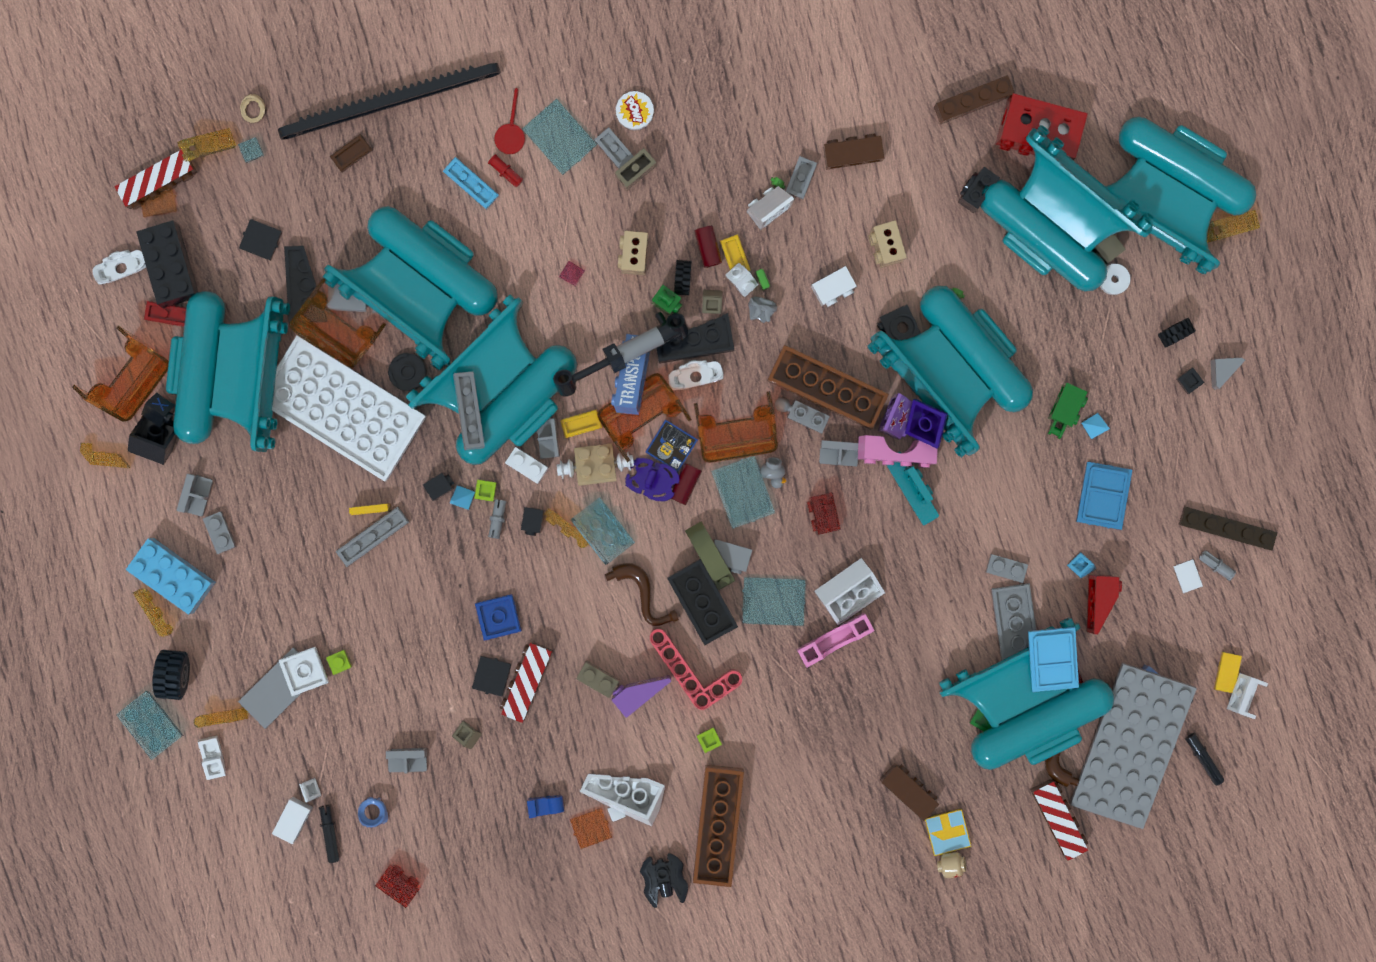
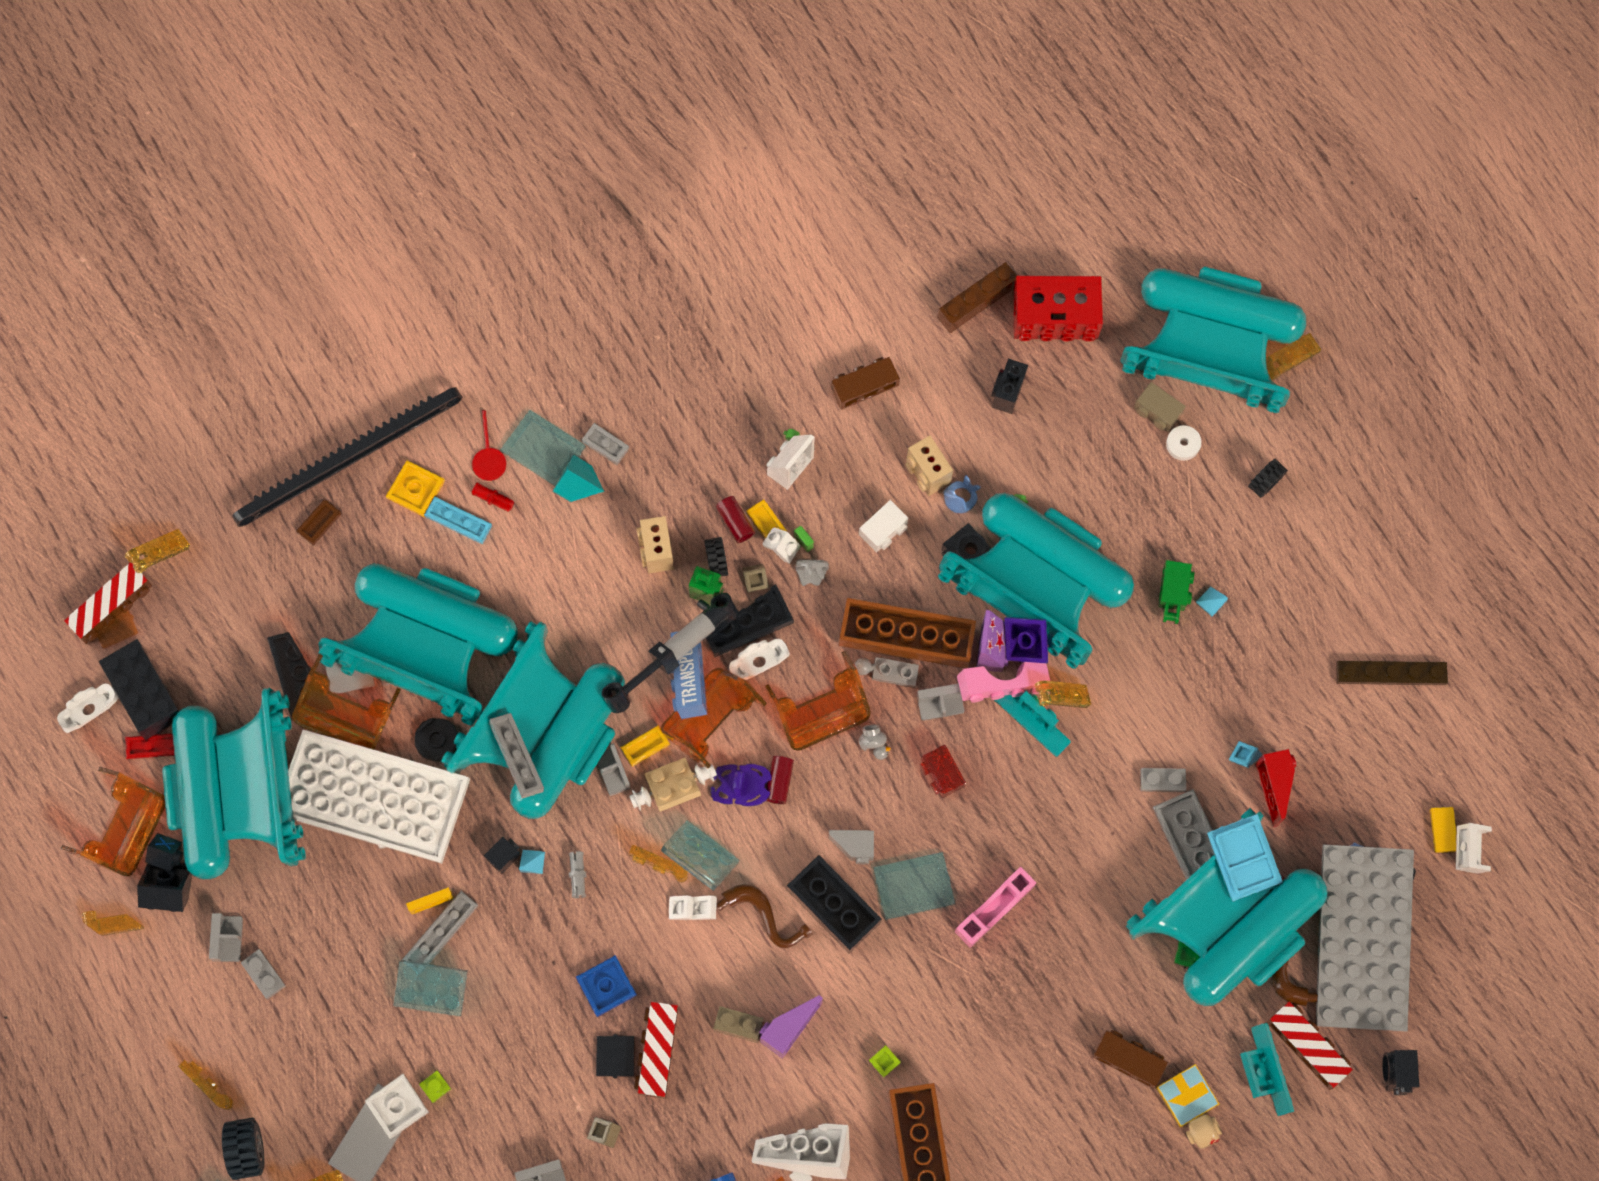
camera: 15 degrees left, 15 degrees down
(170, 575) = (217, 1036): medium azure brick -> none
(246, 101) = (191, 497): tan piece -> none
(251, 150) = (207, 546): clear light blue tile -> none
(260, 239) = (238, 639): black piece -> none
(353, 582) = (430, 988): none -> clear light blue plate
(440, 144) = (415, 488): none -> yellow tile
(485, 490) = (556, 846): lime plate -> none
(527, 465) = (596, 805): white brick -> none
(532, 521) = (618, 865): black brick -> none
(571, 273) = (593, 587): clear pink slope -> none
(582, 175) = (578, 481): none -> teal slope
(585, 572) = (692, 908): none -> white slope
(634, 110) = (617, 400): tile -> none
(635, 169) = (634, 458): dark tan brick -> none
(671, 445) = (752, 742): tile -> none
(682, 678) = (842, 992): coral beam -> none
(710, 555) = (823, 843): olive arch -> none
(743, 492) = (846, 772): clear light blue piece -> none
(801, 177) = (817, 421): light grey plate -> none
(849, 591) = (996, 850): white slope -> none
(899, 280) = (957, 503): none -> medium blue piece
(944, 476) = (1063, 694): none -> clear yellow plate
(1016, 829) = (1265, 1071): none -> teal bracket
(1061, 215) = (1105, 388): teal piece -> none
(1104, 495) = (1245, 673): dark azure piece -> none
(1127, 862) = (1400, 1071): none -> black brick
(1188, 576) = (1365, 736): white sticker -> none
(1190, 380) = (1299, 526): black plate -> none
(1204, 758) = (1442, 926): black axle -> none
(1217, 565) = (1393, 715): light grey axle -> none
(1223, 369) = (1329, 505): light grey slope -> none

